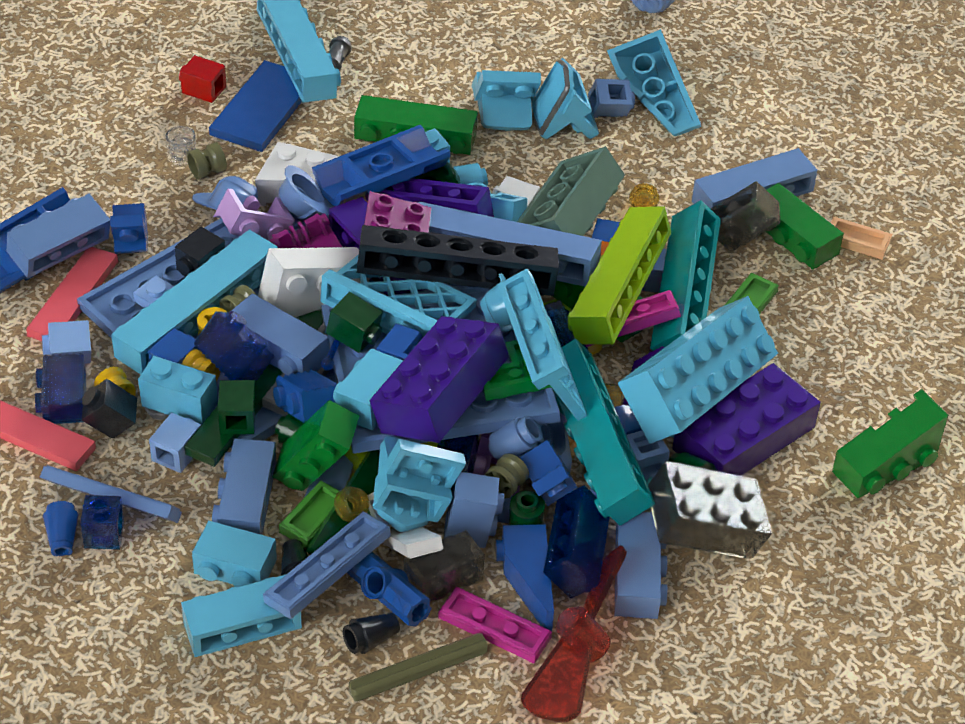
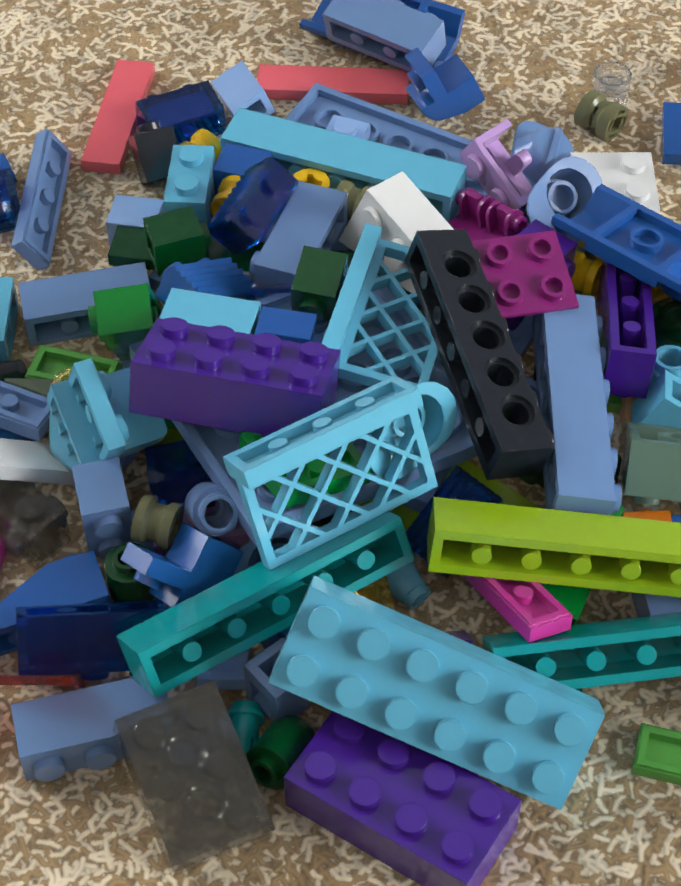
camera: 75 degrees right, 5 degrees up
(197, 250) = (419, 136): black brick -> none

